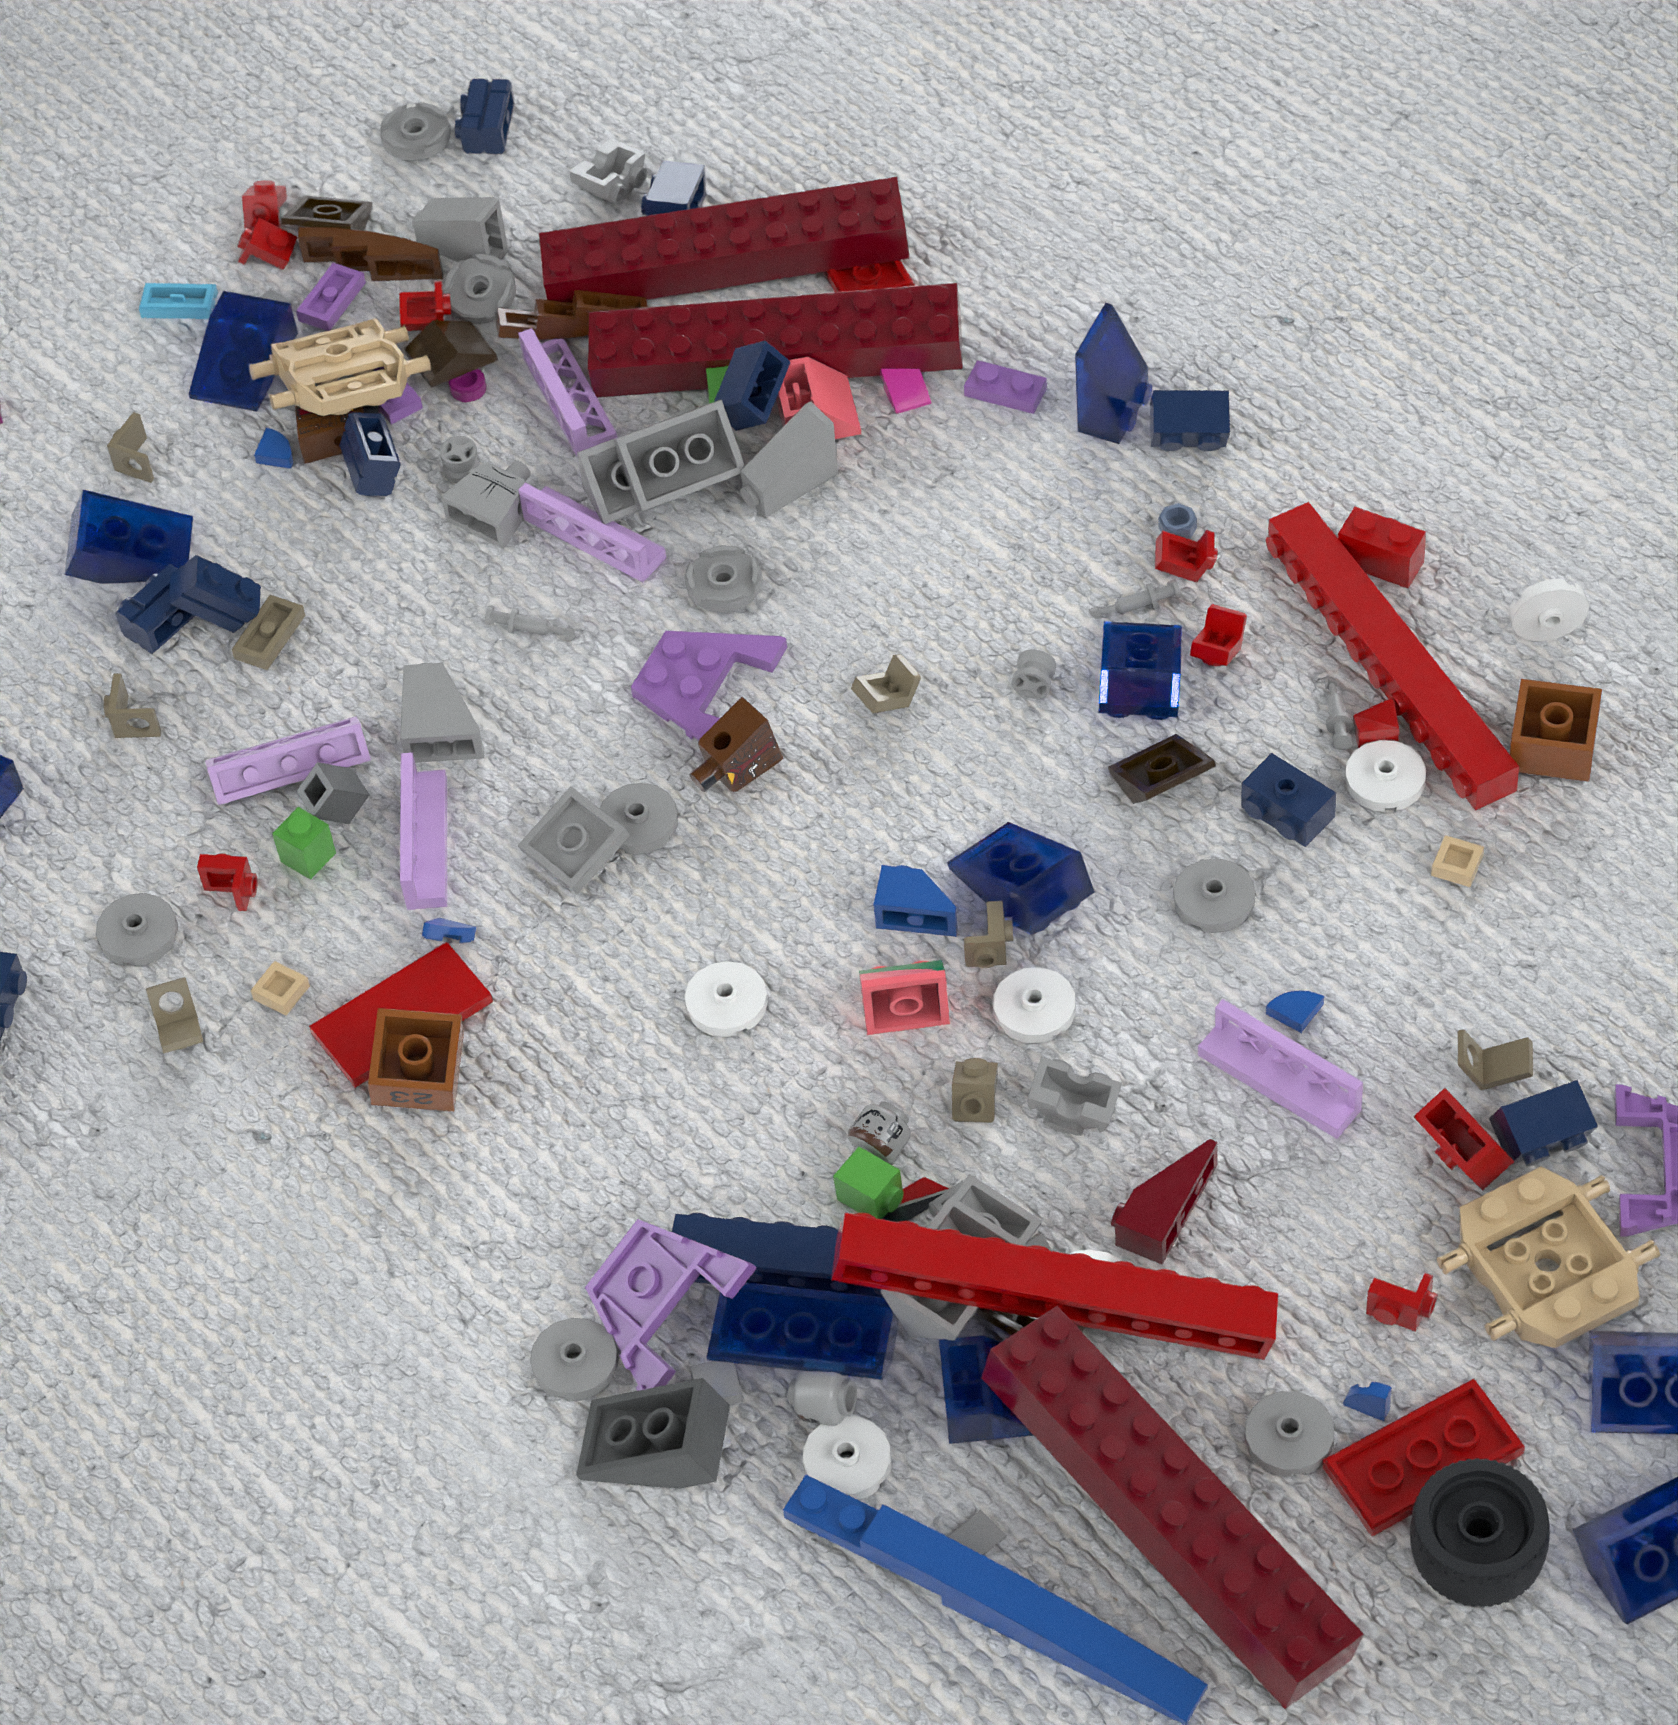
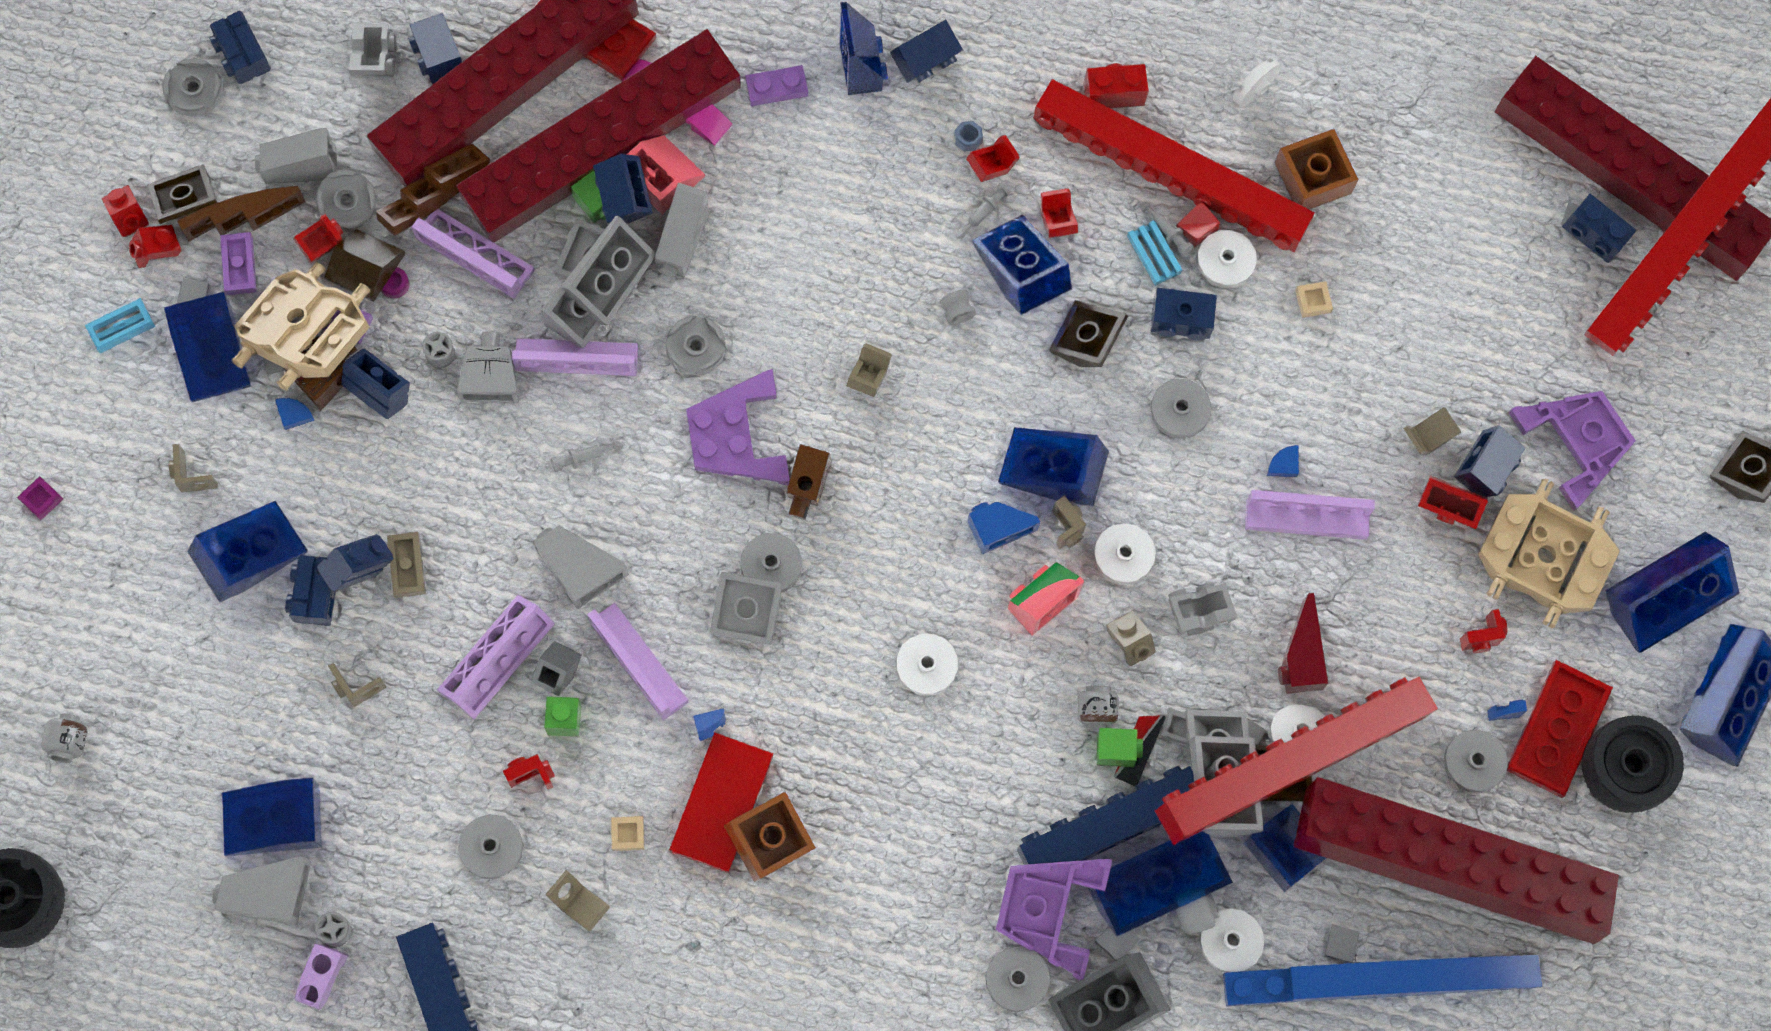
camera: 45 degrees left, 20 degrees up
(1305, 705) = (1164, 247): none -> medium azure tile

